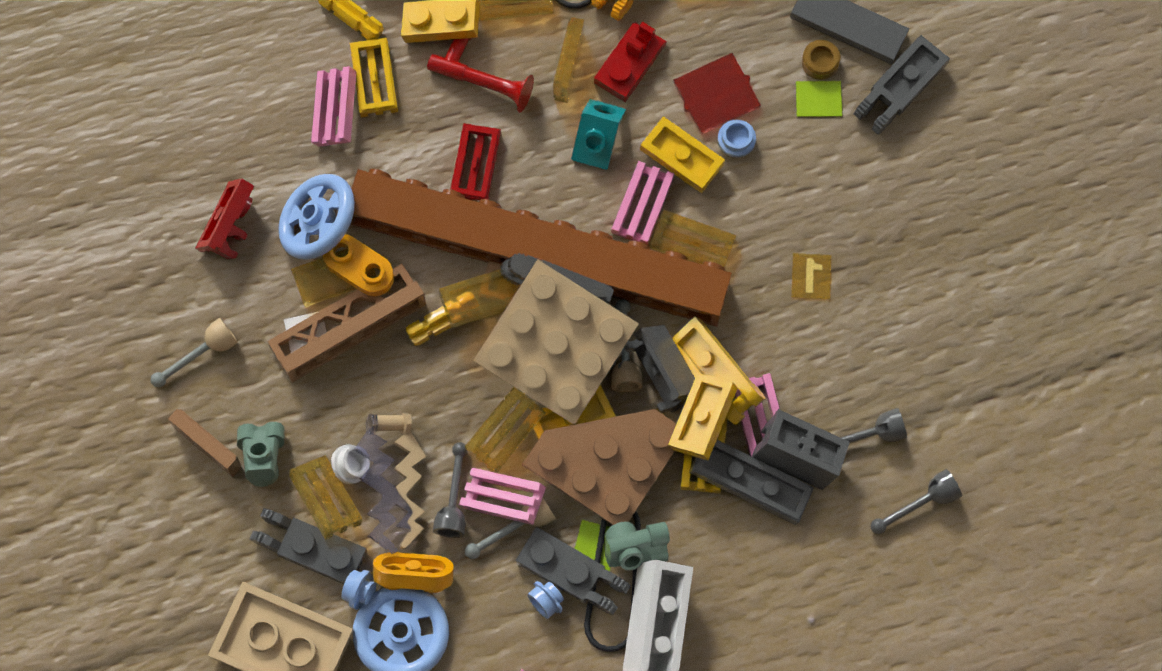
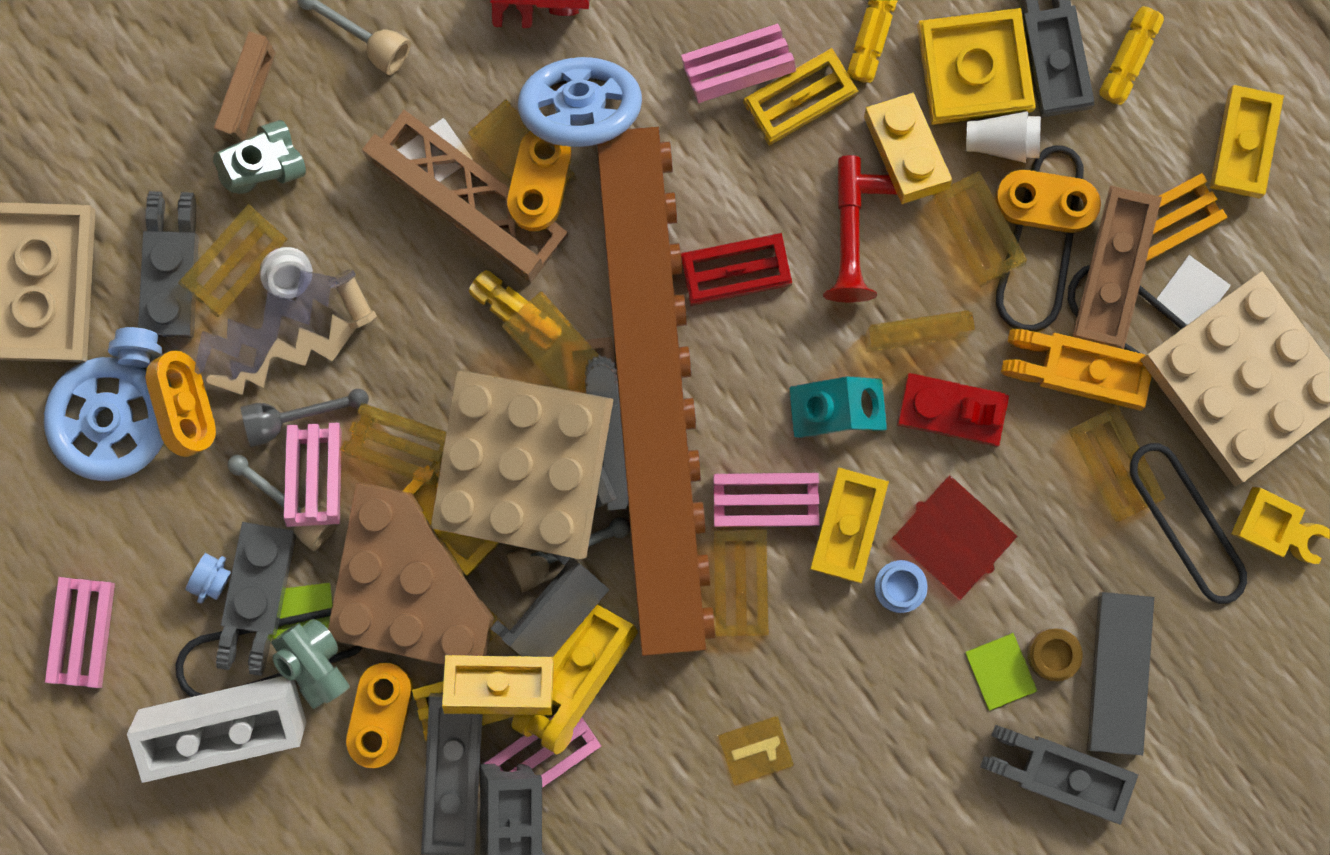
camera: 65 degrees right, 10 degrees up
(688, 518) = (379, 715): none -> light orange plate

